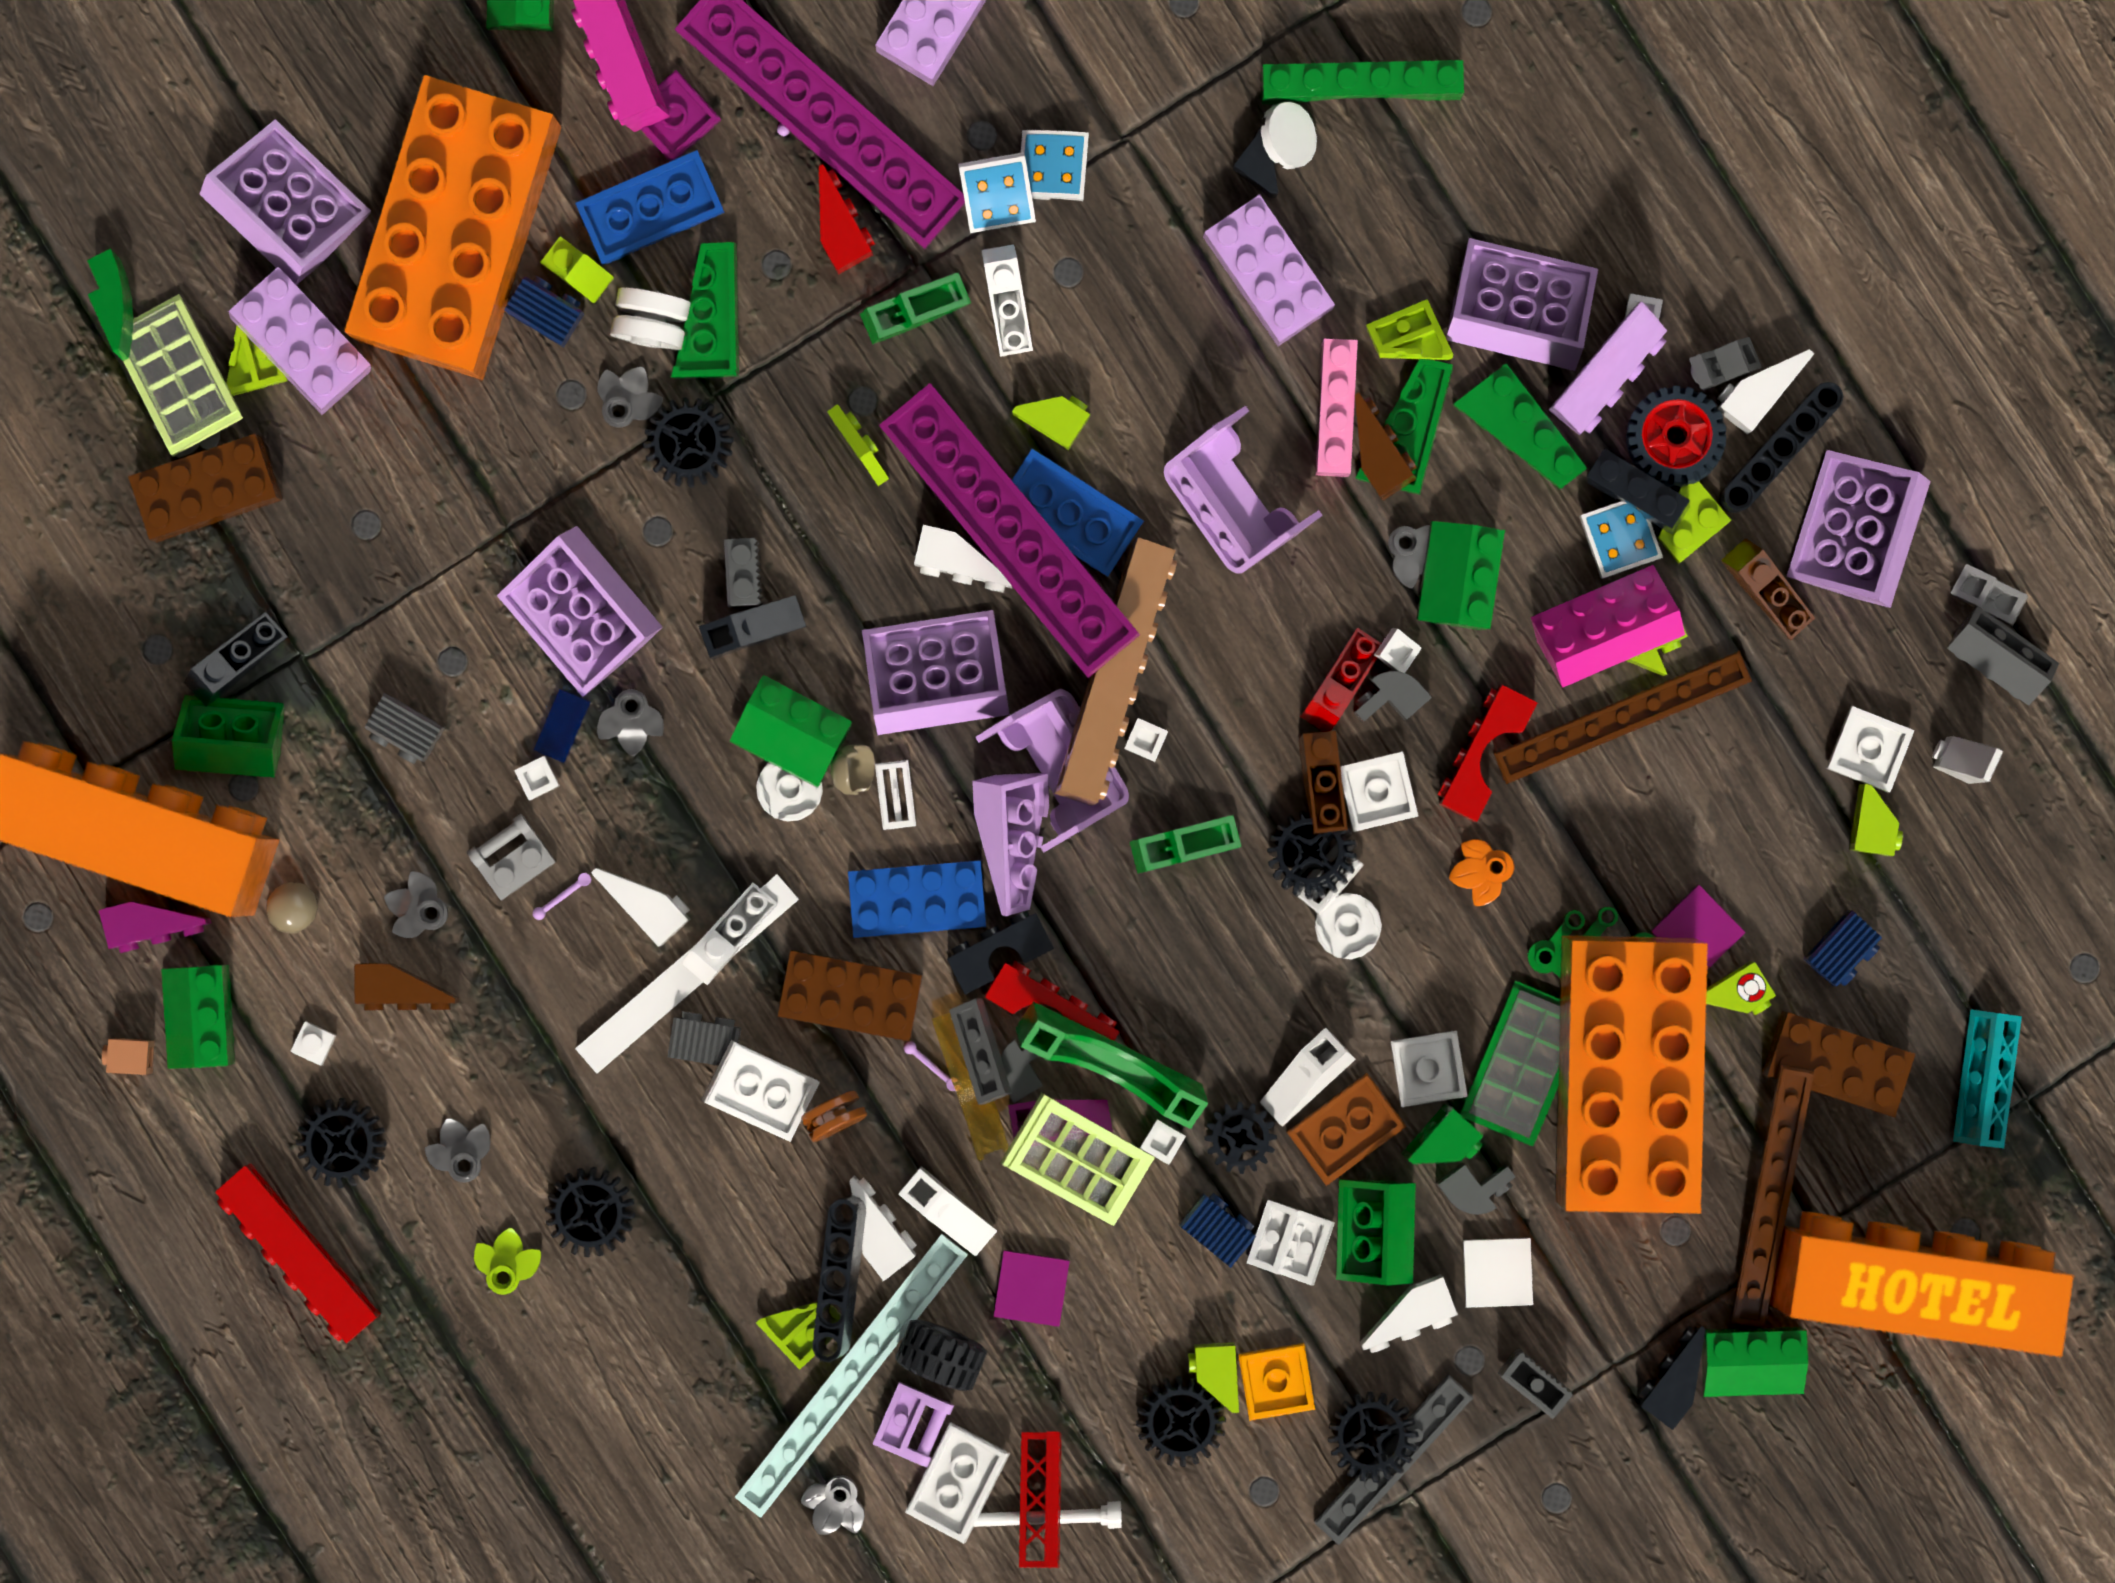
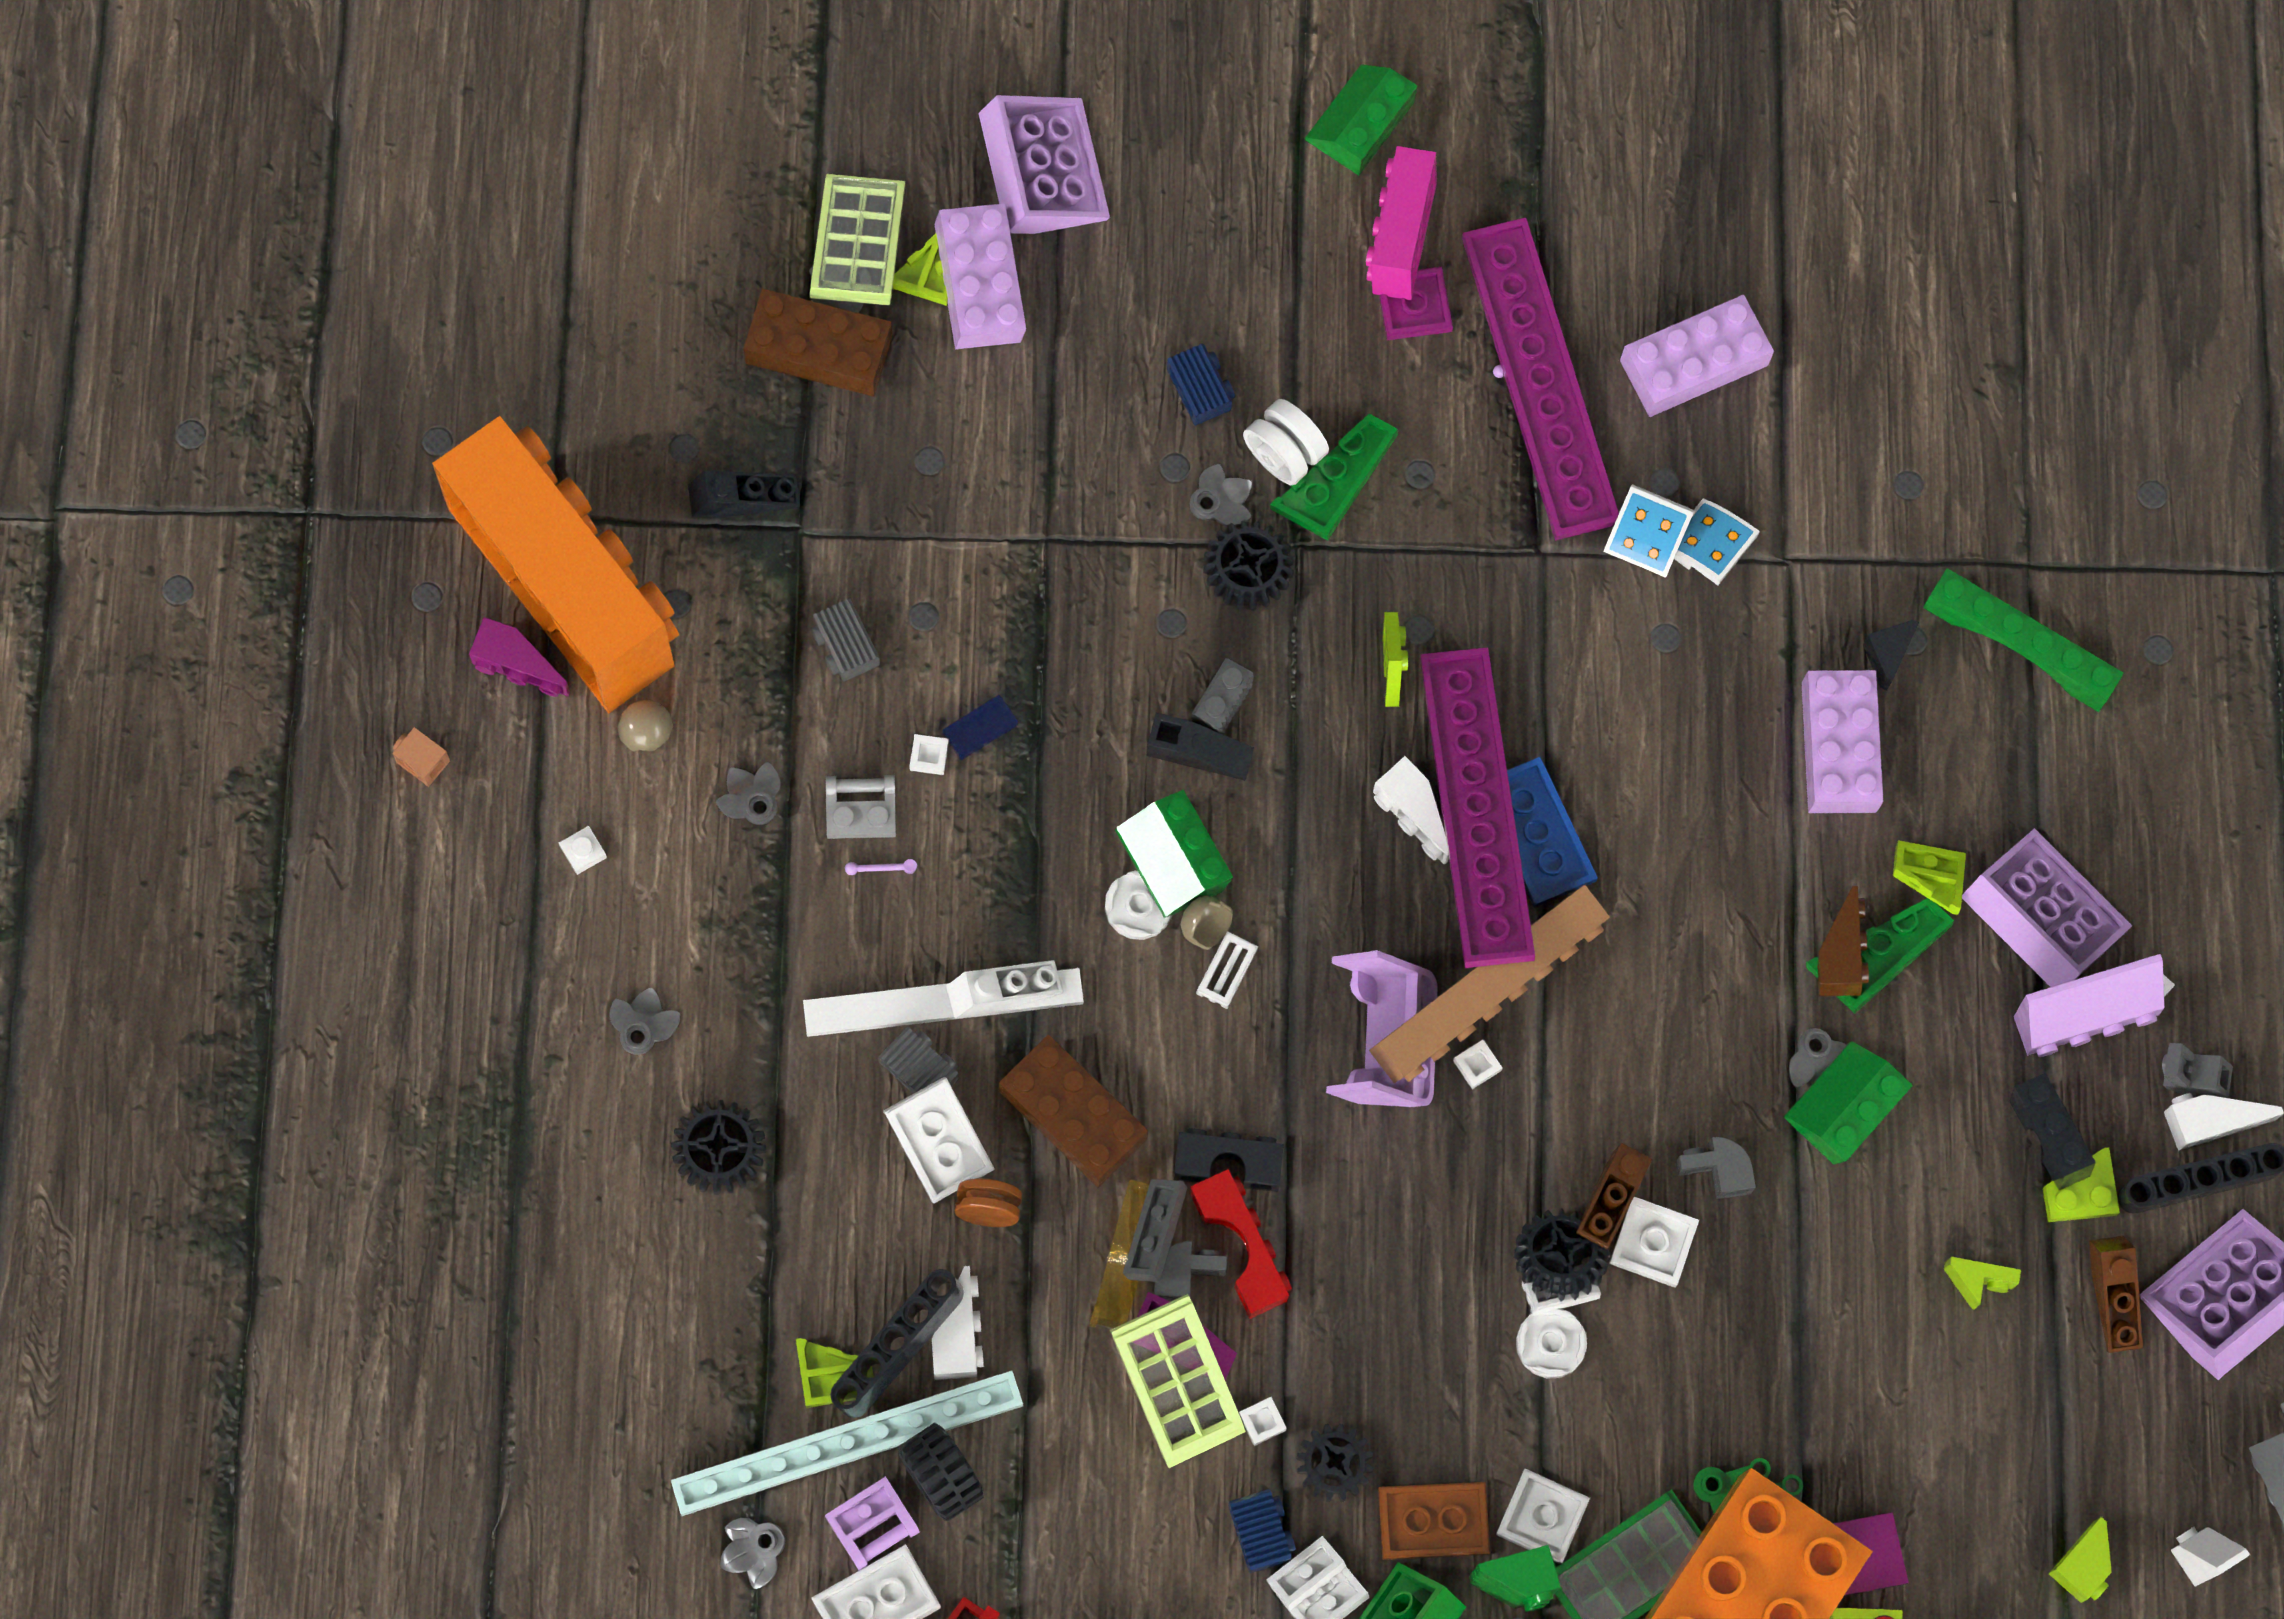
camera: 30 degrees right, 15 degrees down
(113, 301) = (848, 149): green slope -> none
(198, 1017) = (502, 762): green slope -> none
(228, 737) = (693, 552): green slope -> none
(297, 1253) = (442, 1014): red brick -> none
(354, 1152) = (535, 950): black gear -> none
(390, 984) = (682, 842): reddish brown slope -> none
(453, 227) = (1170, 266): orange brick -> none
(509, 1257) = (617, 1138): lime plate -> none
(577, 270) = (1250, 371): lime slope -> none
(579, 610) = (1061, 641): lavender slope -> none
(630, 726) = (1037, 765): flat silver plate -> none
(650, 207) = (1345, 359): blue plate -> none
(650, 909) = (950, 922): white slope -> none
(839, 233) = (1491, 480): red slope -> none
(910, 1048) = (1094, 1193): lavender hinge -> none
(914, 308) = (1515, 580): green slope -> none
(917, 899) = (1186, 1070): blue plate -> none
(935, 672) = (1330, 888): lavender slope -> none
(947, 1211) = (1031, 1353): white slope -> none
(1007, 300) = (1598, 624): white slope -> none
(1009, 824) = (1309, 1059): lavender wedge -> none
(1031, 1288) = (1058, 1474): magenta tile -> none
(1055, 418) = (1576, 745): lime slope -> none
(1070, 1042) = (1245, 1274): green arch -> none
(1185, 844) = (1453, 1175): green slope -> none
(1225, 502) = (1677, 905): lavender windscreen -> none
(1289, 135) = (1931, 641): white tile -> none
(1306, 1076) = (1431, 1446): white slope -> none
(1336, 407) = (1827, 891): bright pink arch -> none
(1342, 681) = (1683, 1126): red slope -> none
(1397, 651) = (1750, 1131): white plate -> none
(1467, 791) = (1811, 1249): red arch -> none
(1477, 872) = (1698, 1371): orange plate -> none
(1516, 420) = (1980, 1006): green wing -> none
(1608, 626) = (1953, 1227): dark pink brick -> none
(1620, 538) = (2010, 1163): dark azure slope -> none
(1622, 717) = (1914, 1321): reddish brown tile -> none
(1683, 411) = (2129, 1087): wheel -> none
(1870, 749) = (2123, 1493): white plate -> none

